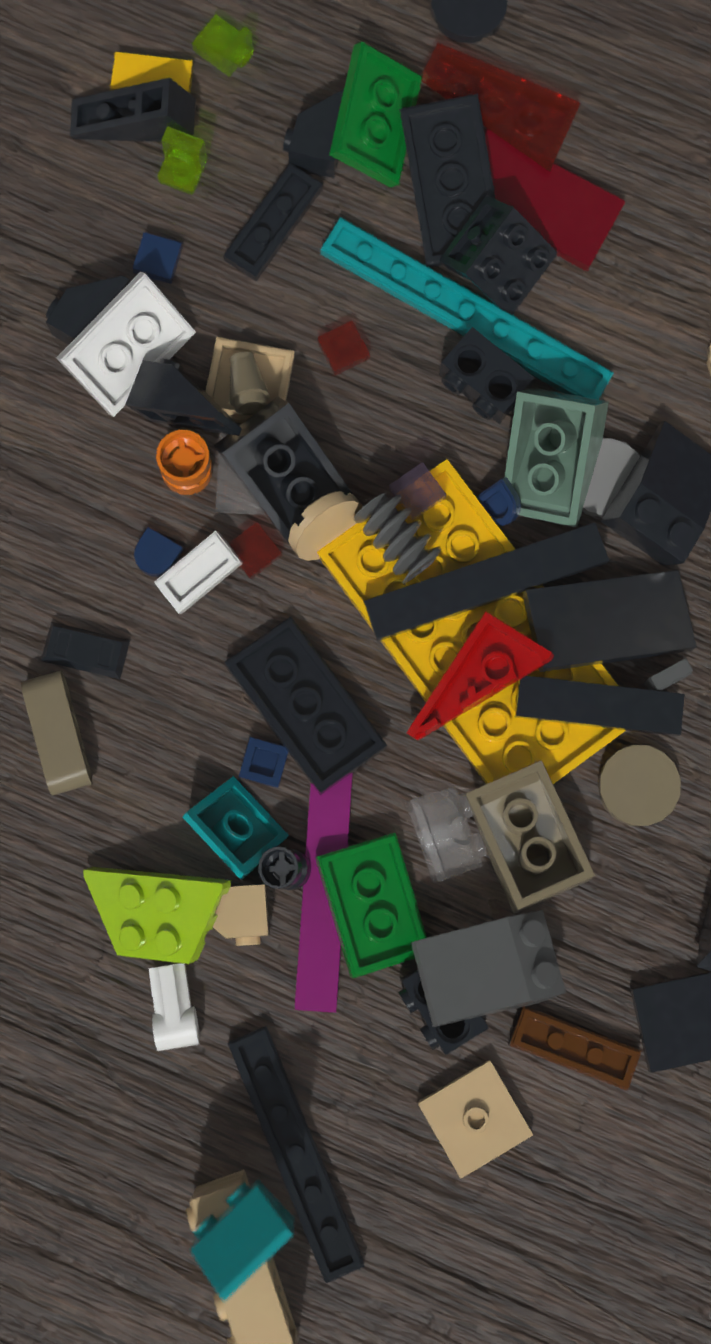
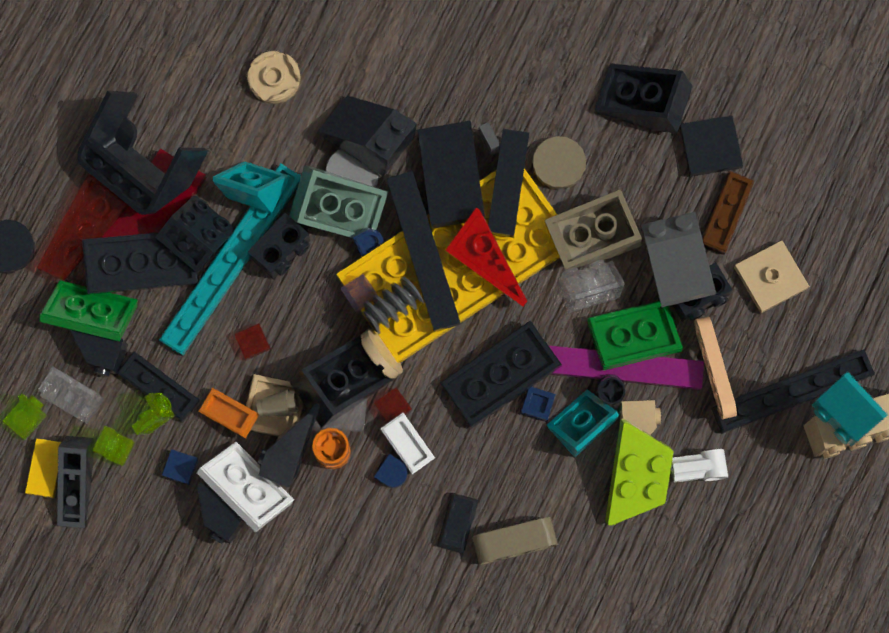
camera: 80 degrees left, 5 degrees down
(229, 217) = (154, 417): none -> clear neon green bracket
(235, 318) = (228, 412): none -> orange tile
(257, 102) = (70, 395): none -> clear hinge
(324, 1029) = (715, 368): none -> light nougat beam
(576, 331) = (252, 185): none -> teal slope
(592, 143) = (112, 160): none -> black windscreen

